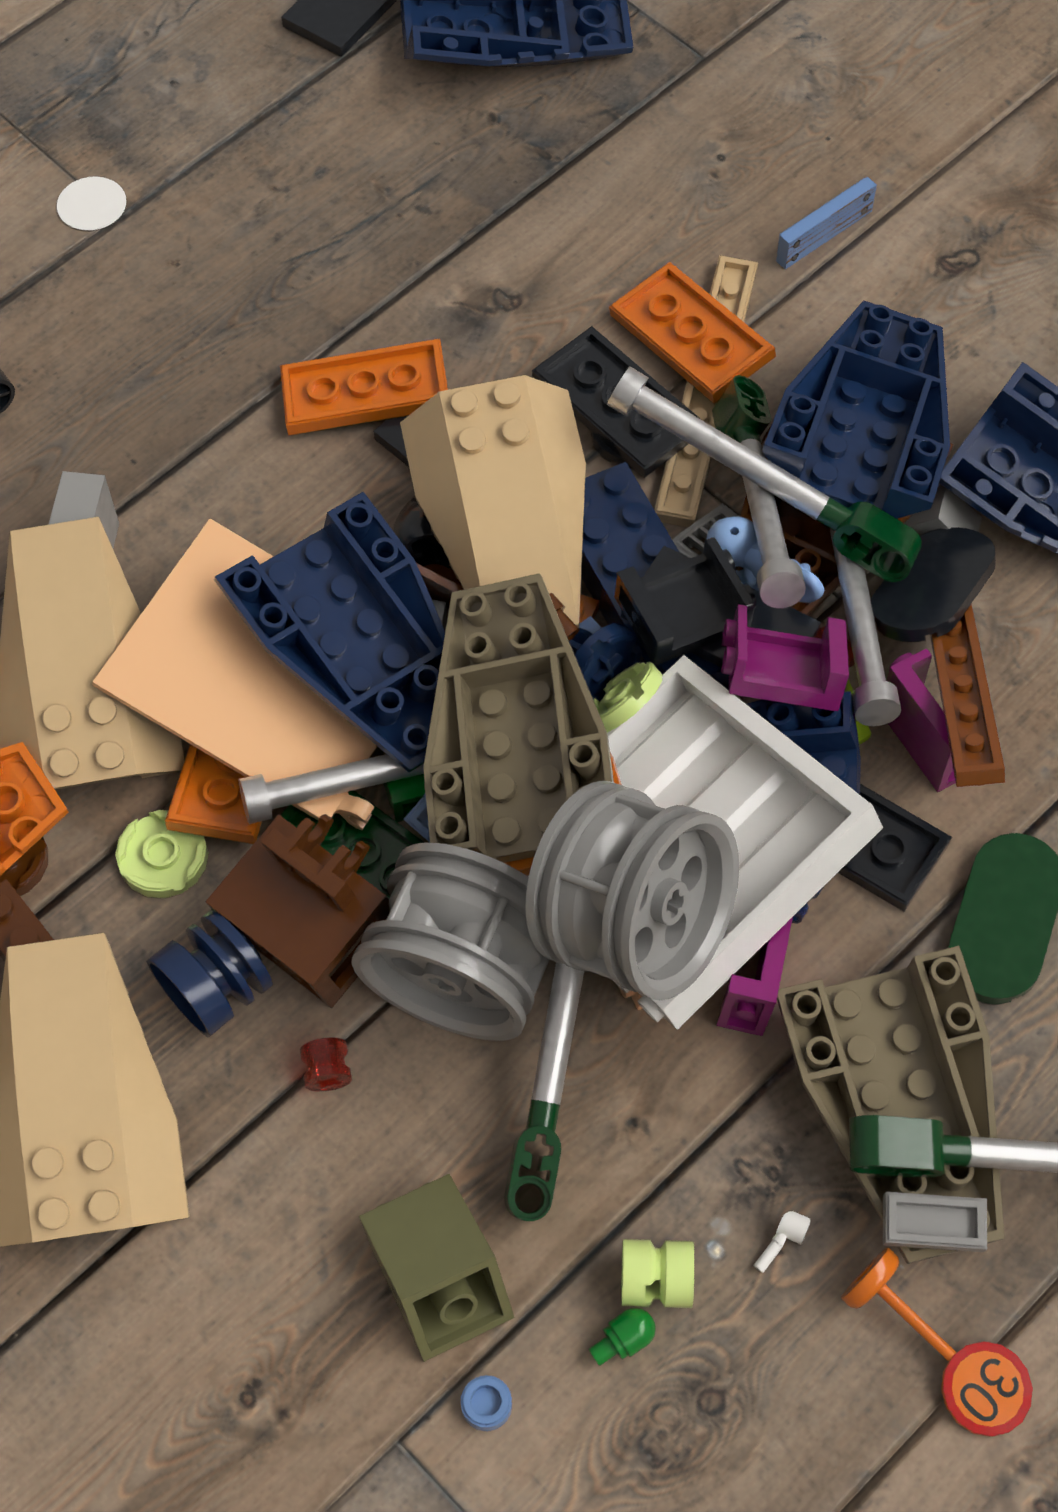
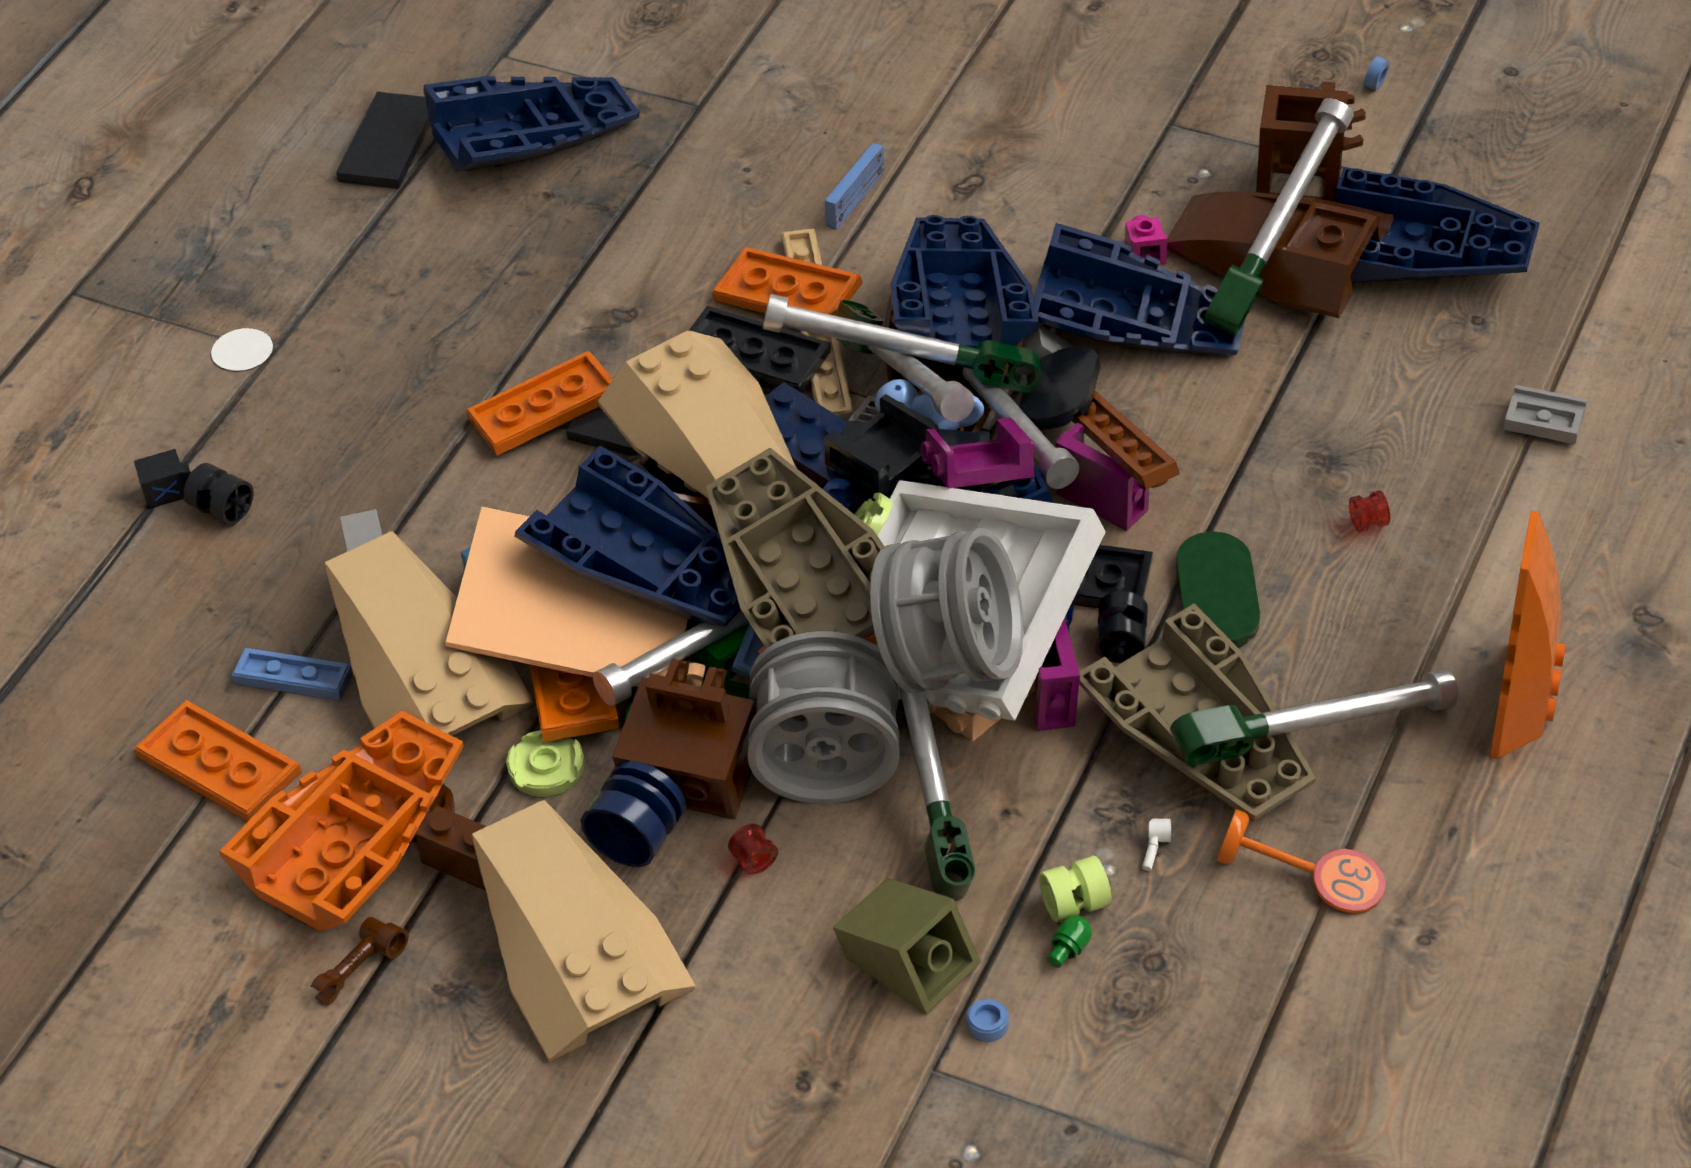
camera: 20 degrees left, 15 degrees down
(870, 928) = (1121, 626): none -> black wheel
(935, 1221) = (1261, 778): light grey tile -> none

